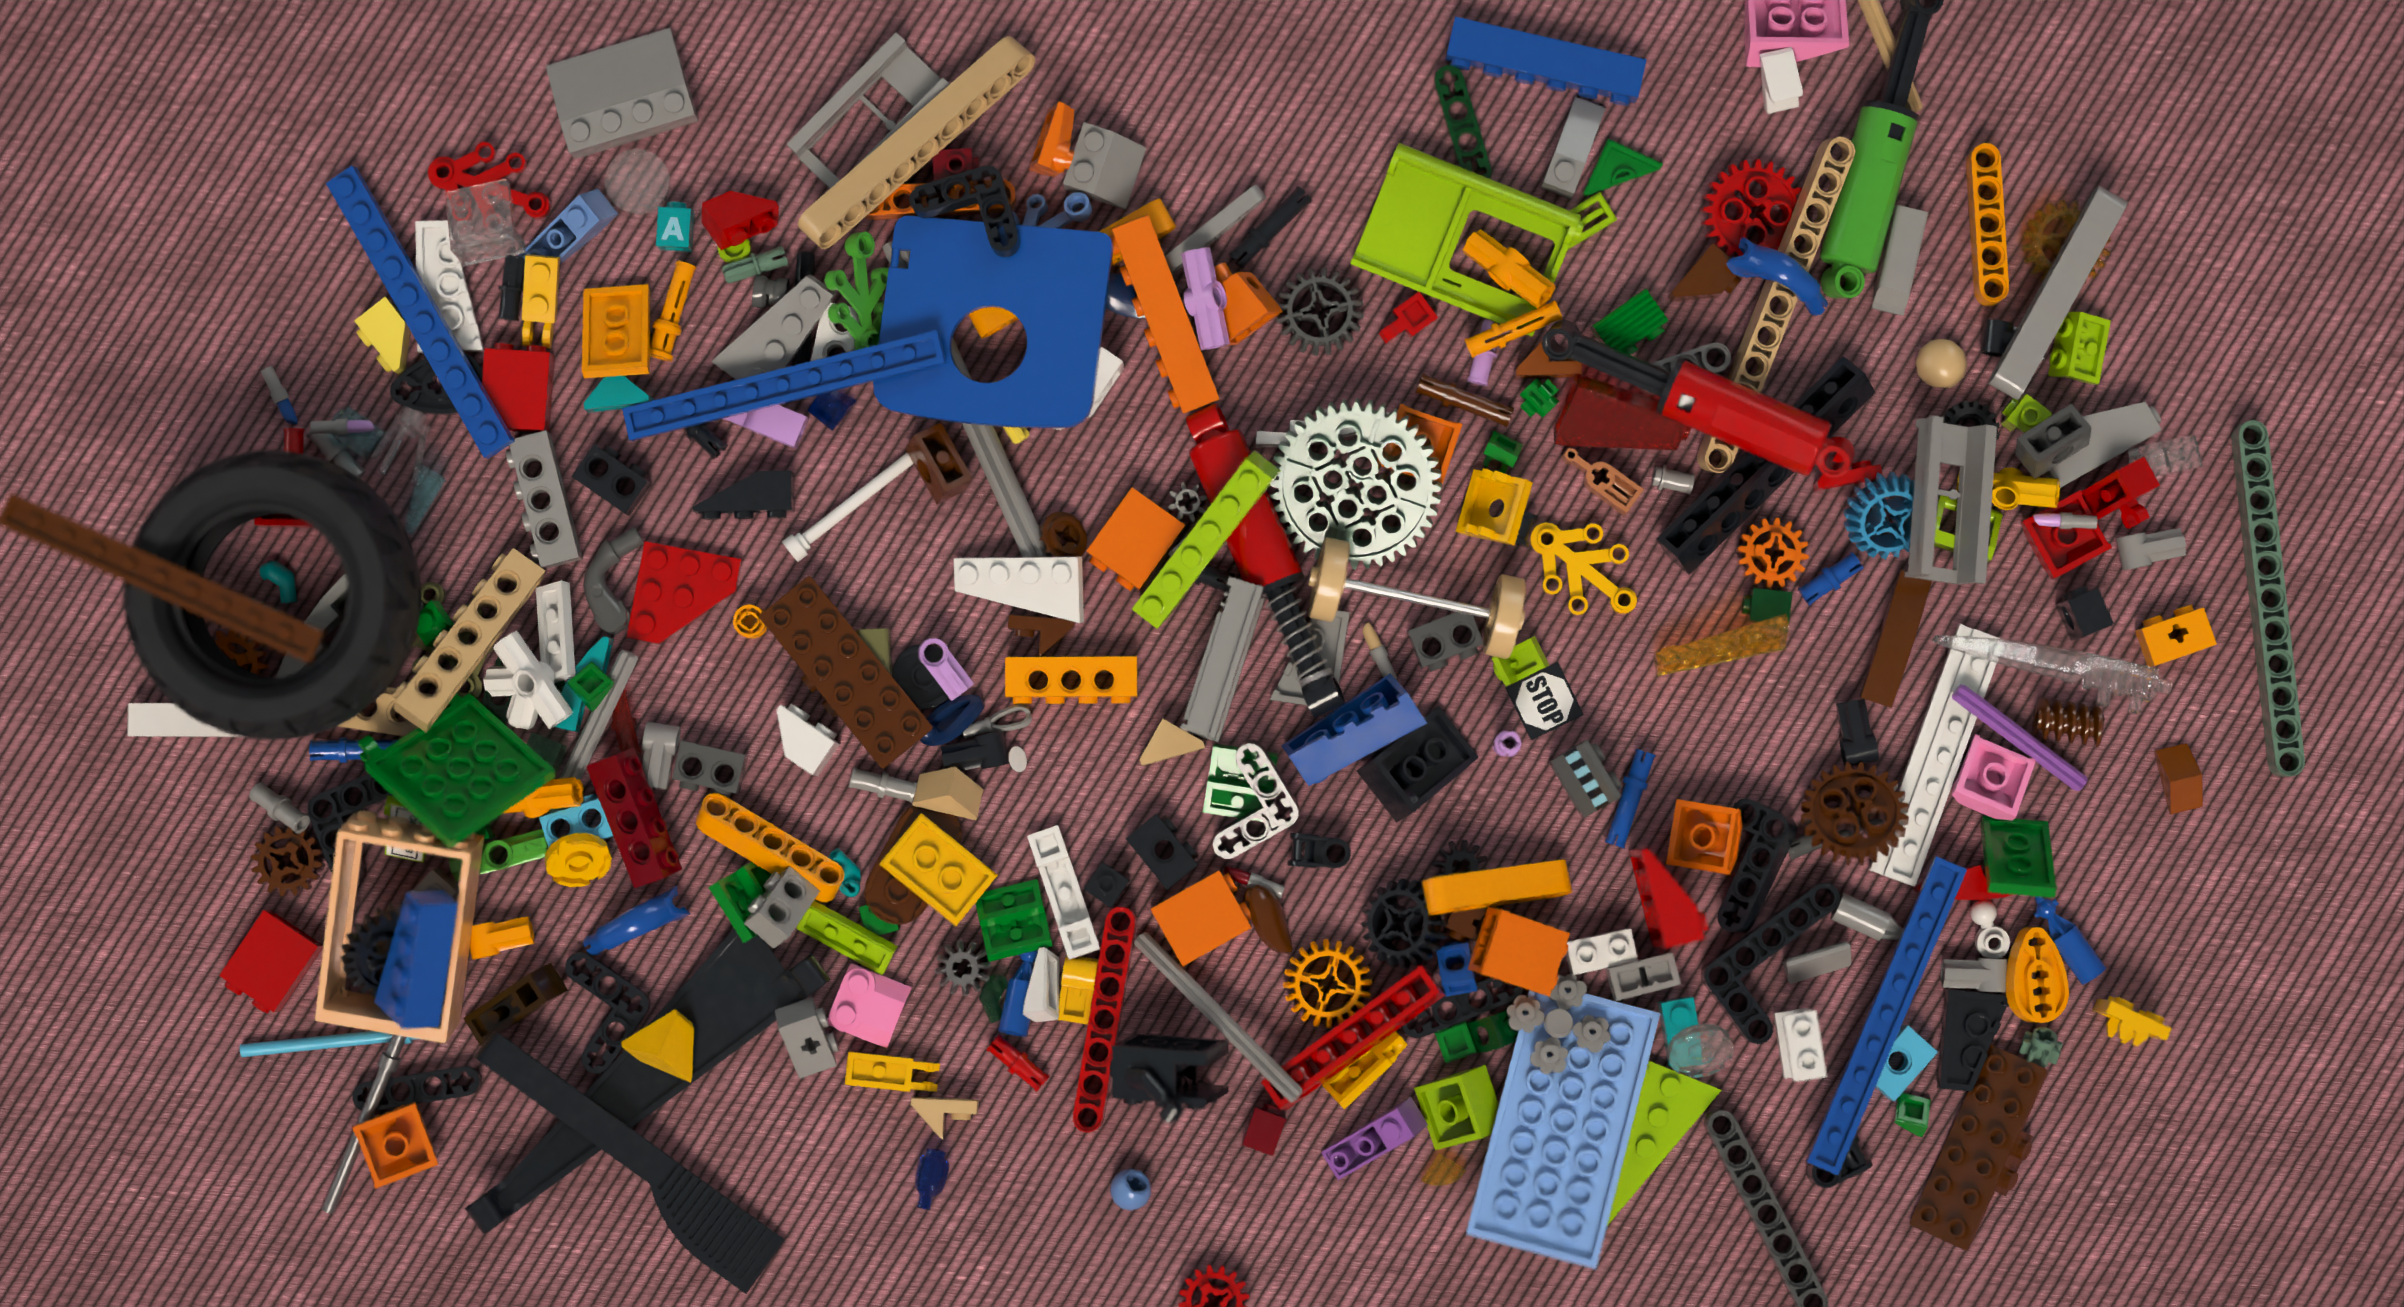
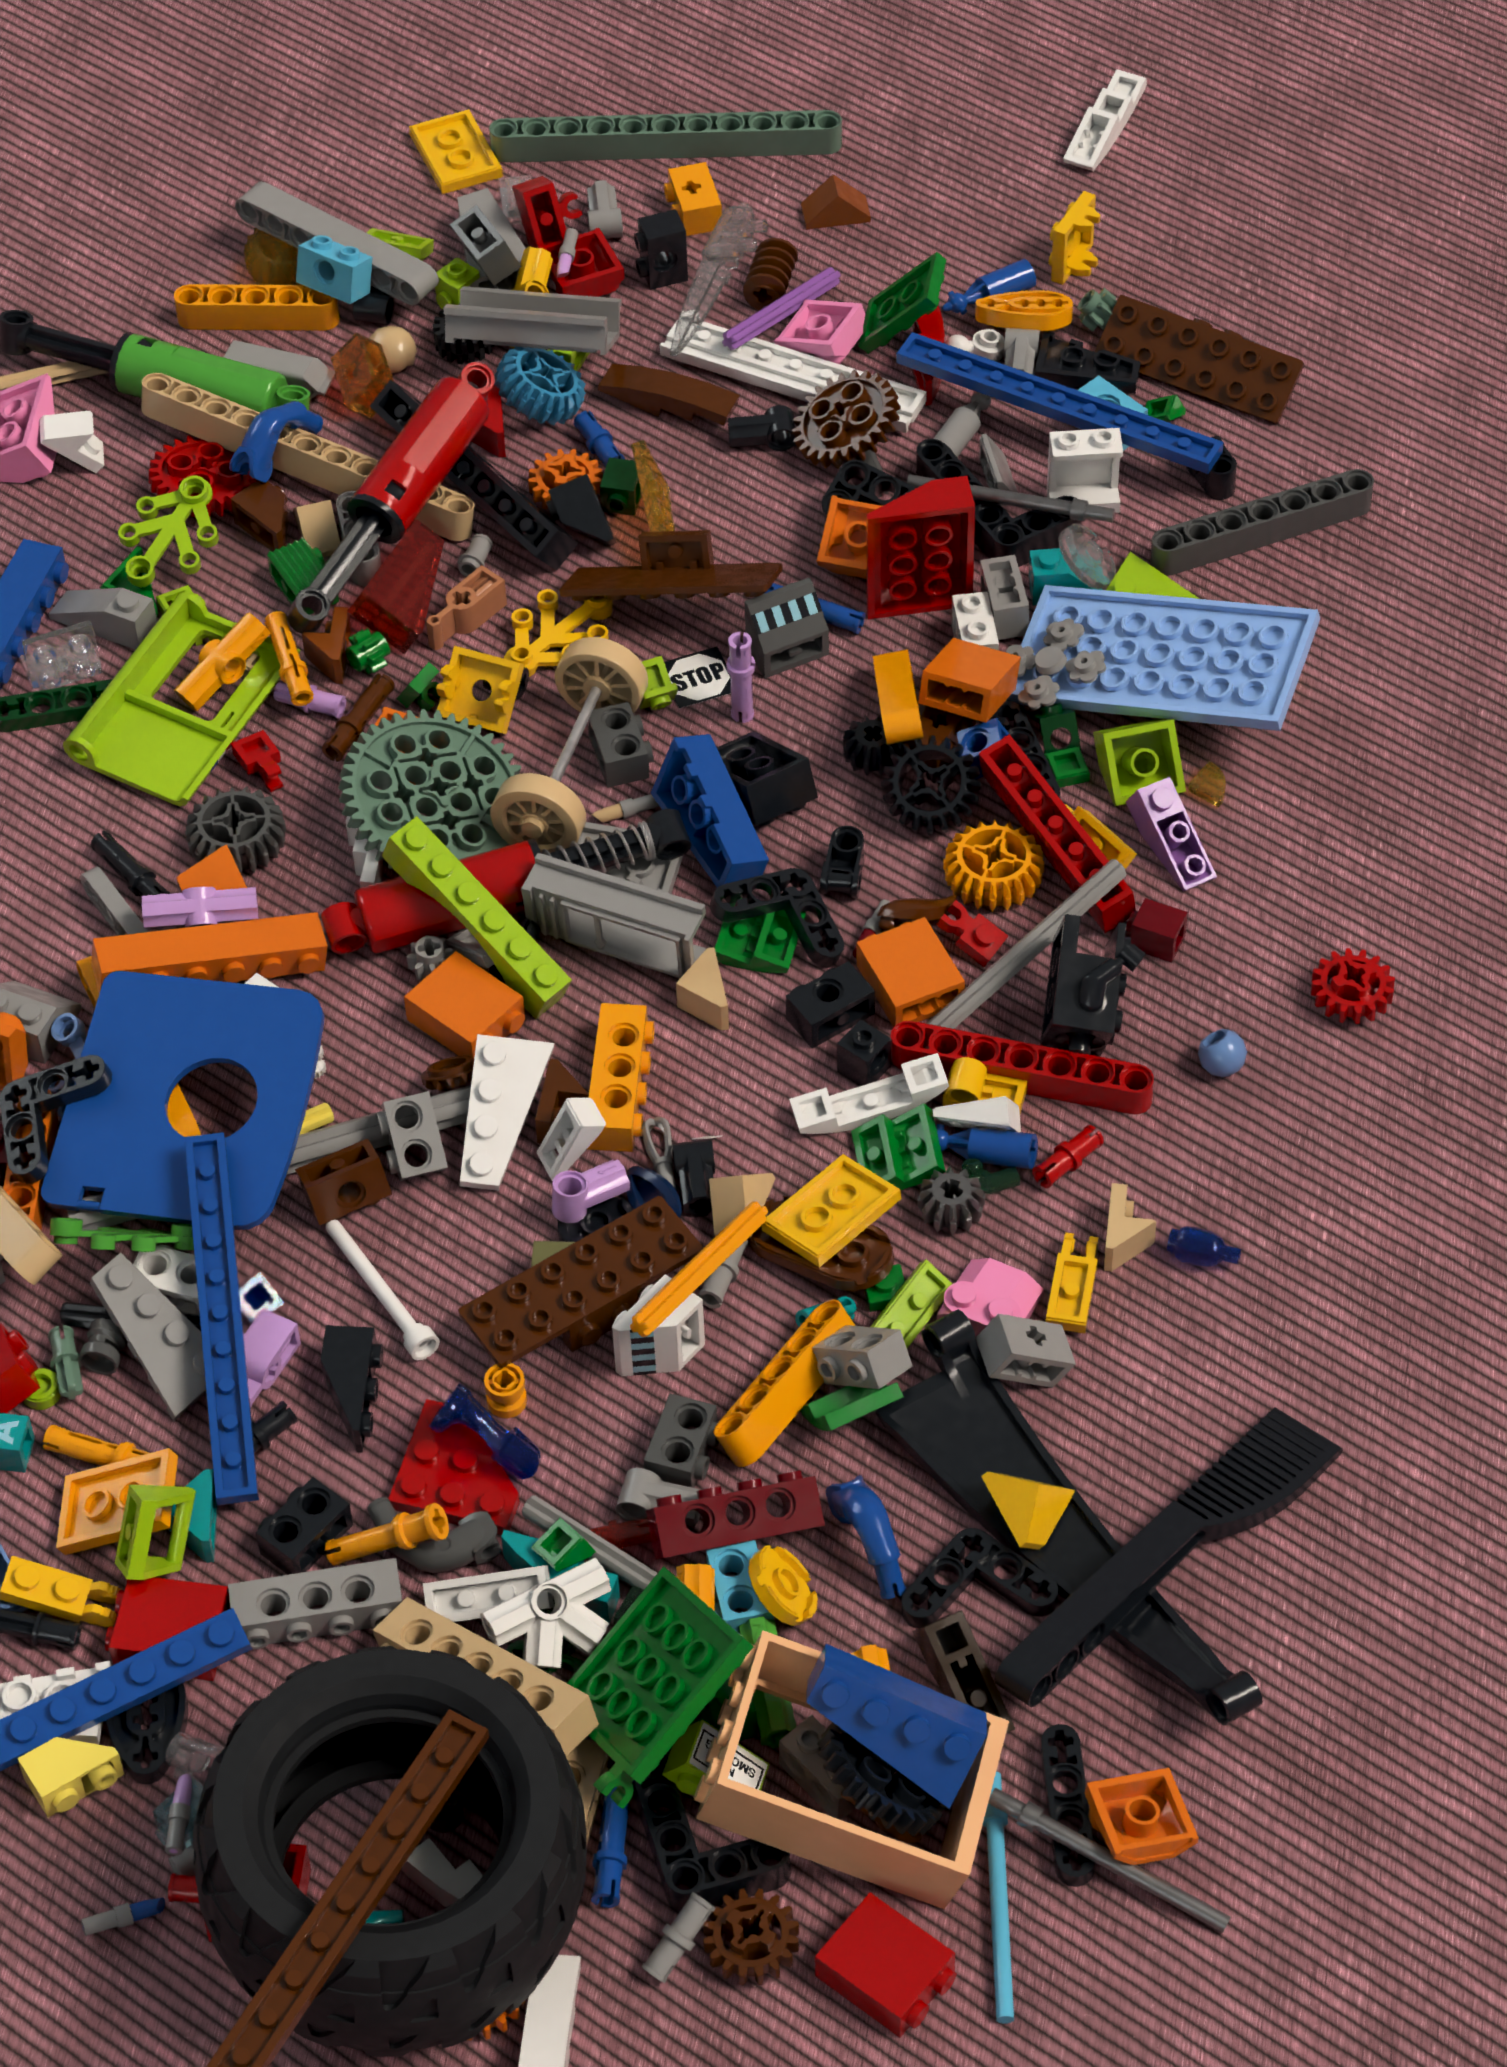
camera: 85 degrees left, 35 degrees down
(571, 359) = (137, 1530): none -> lime tile
(597, 560) = (403, 1532): none -> light orange pin
(707, 592) = (510, 1448): none -> clear blue piece
(840, 770) = (698, 1269): none -> light orange axle
(986, 519) = (423, 1134): none -> light grey brick
(996, 647) = (571, 1134): none -> white slope
(1248, 972) = (976, 936): none -> red plate
(1512, 118) = (61, 656): none -> clear bracket
(1630, 668) = (675, 565): none -> reddish brown bracket
(1669, 195) = (168, 528): none -> lime plant
(1702, 326) = (318, 526): none -> tan slope
(1721, 574) = (580, 509): none -> black slope
(1746, 1040) = (1076, 509): none -> flat silver bar
(1891, 343) = (361, 372): none -> clear orange brick
(2014, 296) = (334, 269): none -> medium azure brick
(2238, 388) = (455, 151): none -> yellow tile
(2328, 1043) = (1105, 120): none -> white slope

